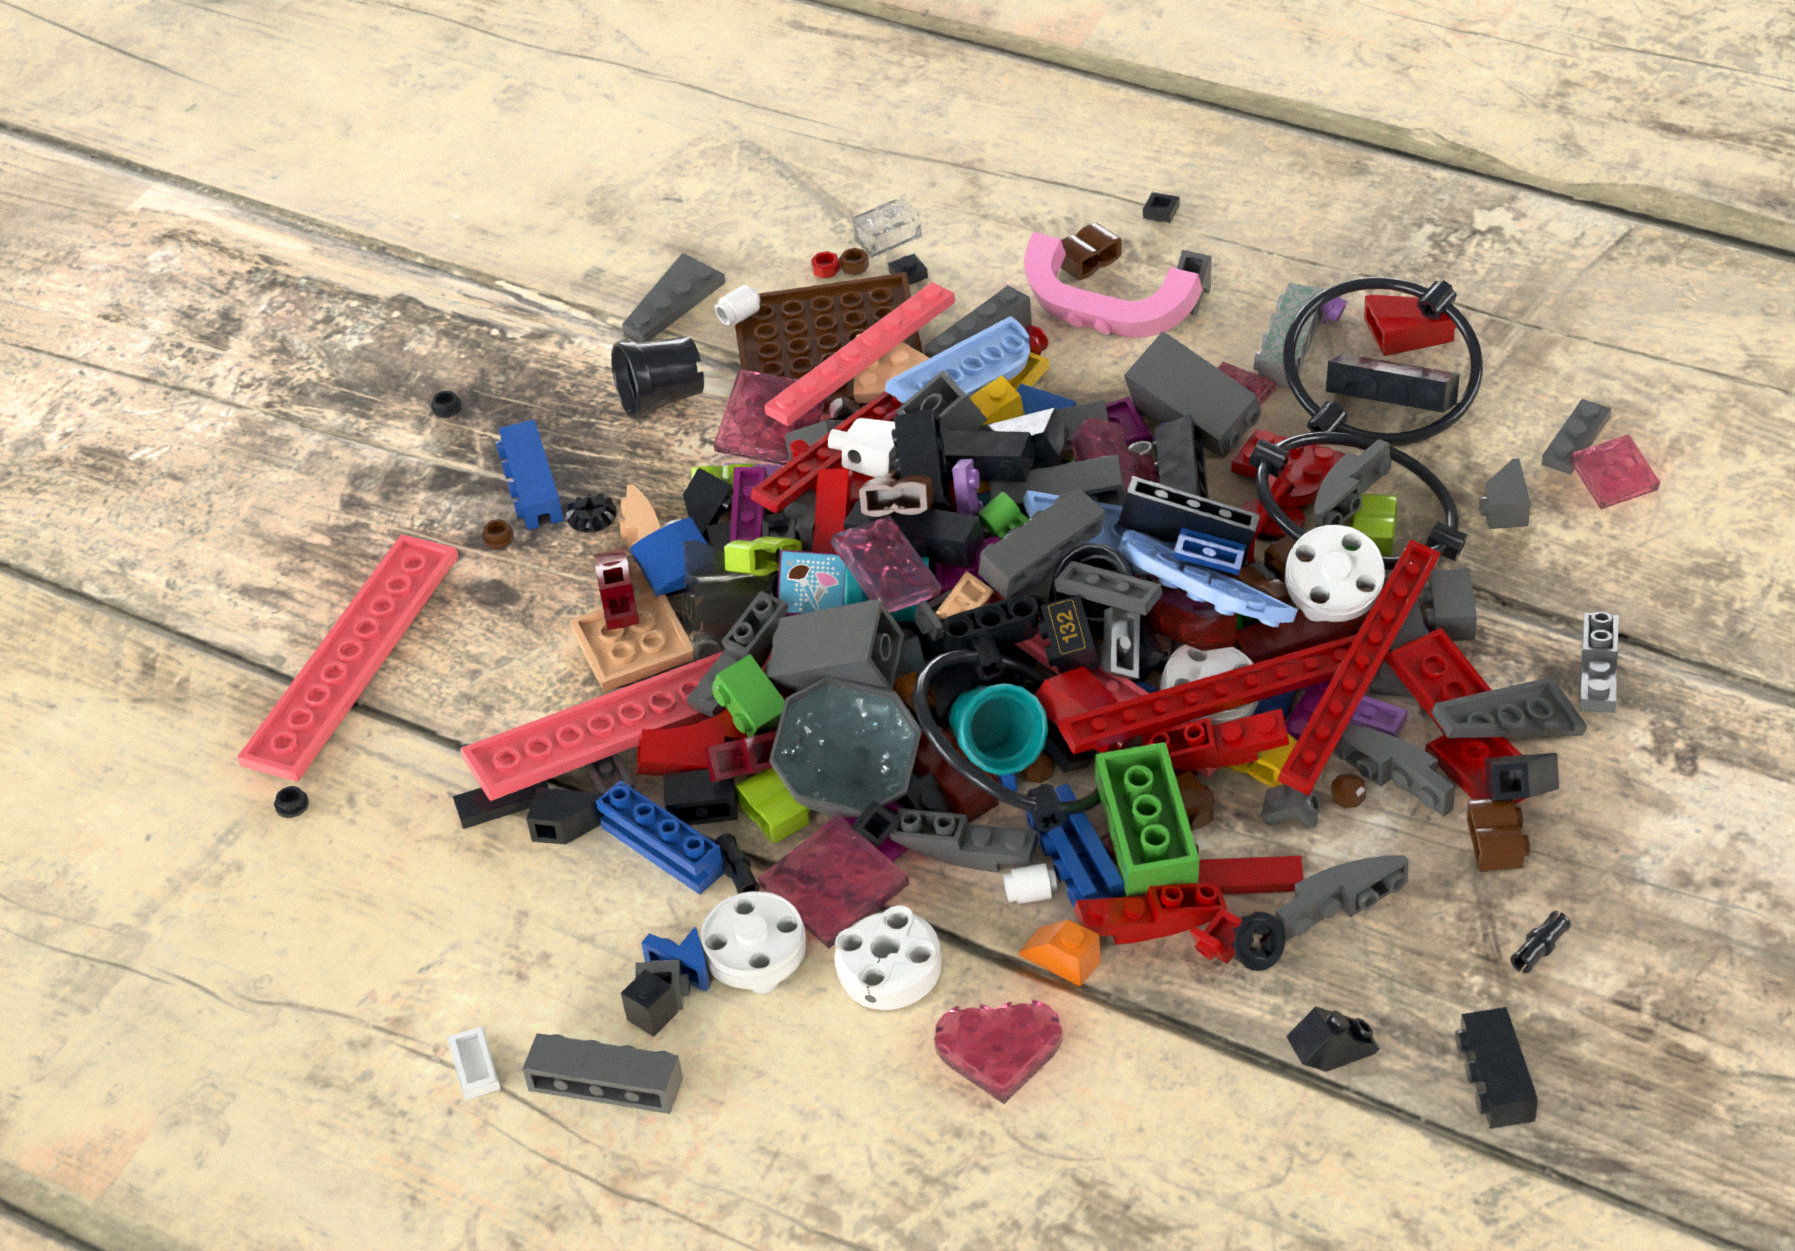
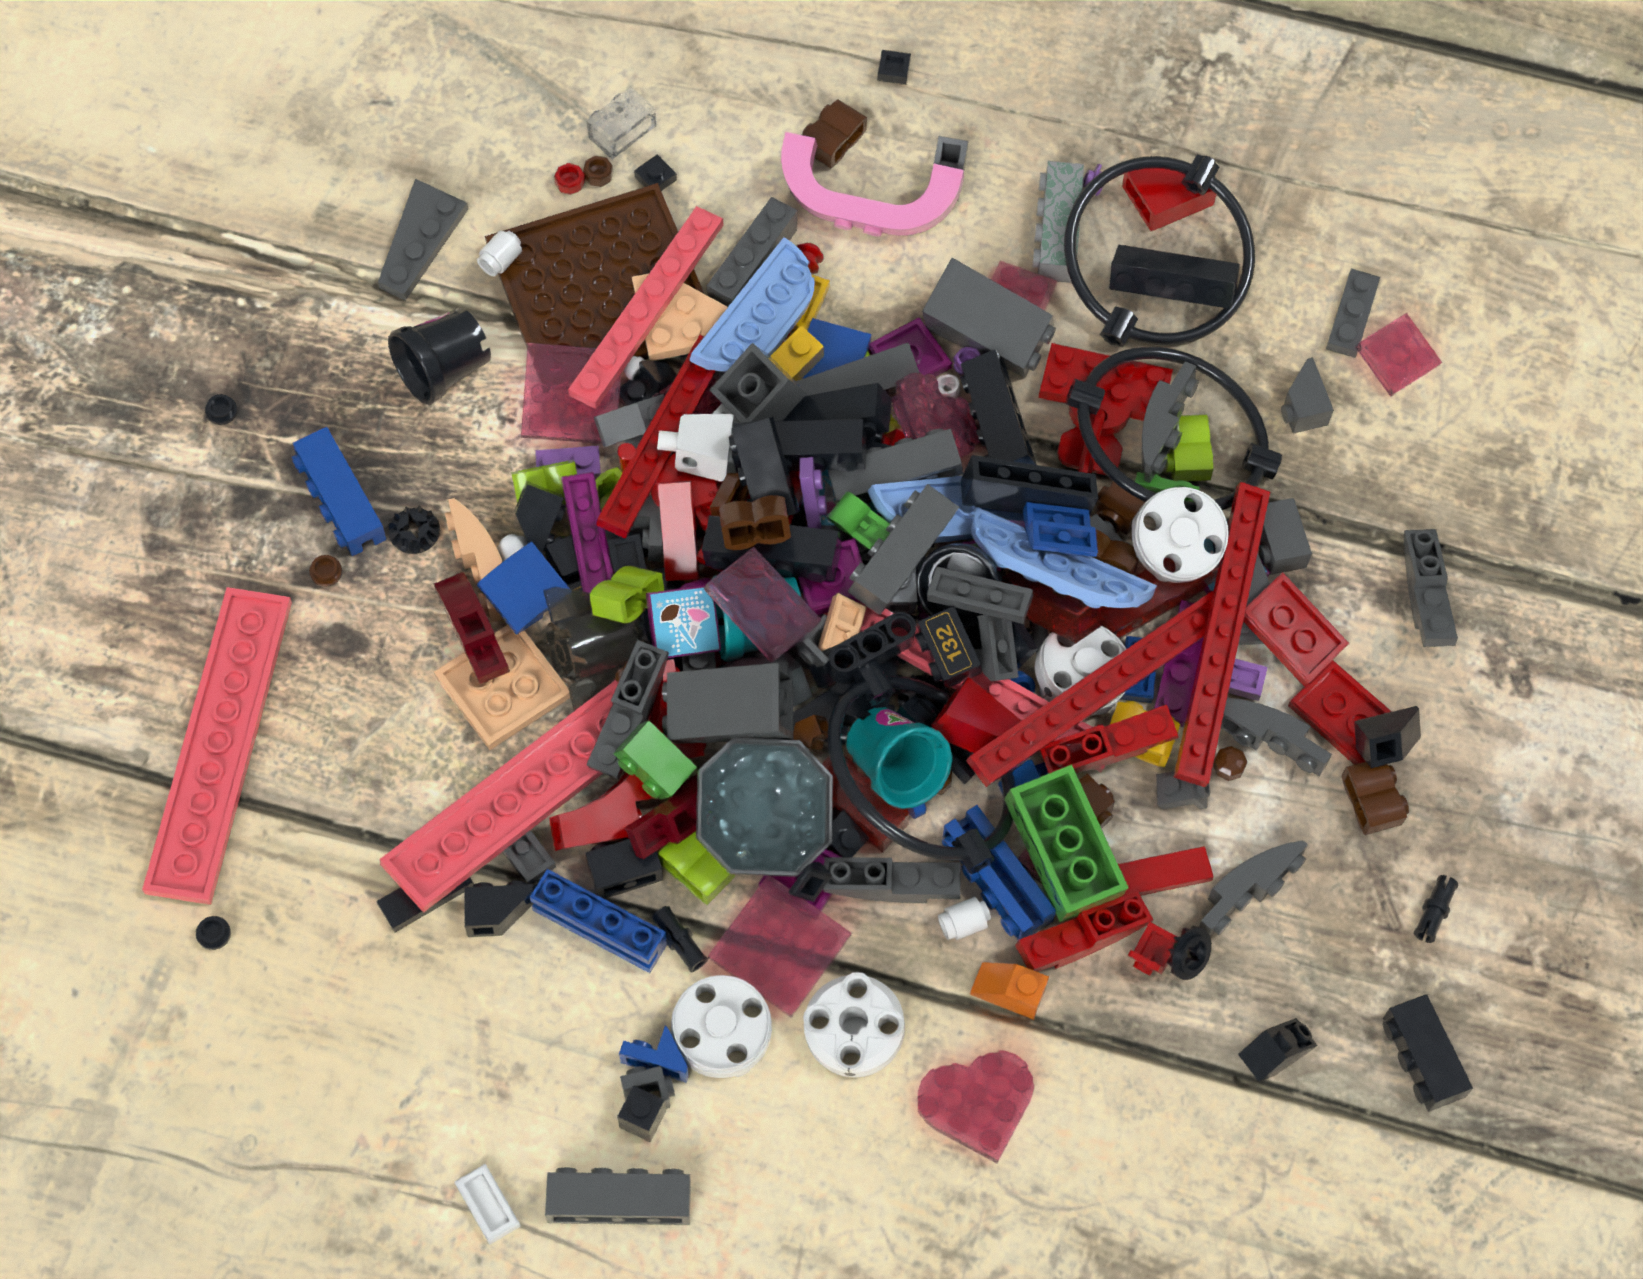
camera: 20 degrees left, 20 degrees up
(1511, 711) = (1363, 657): dark grey wing -> none

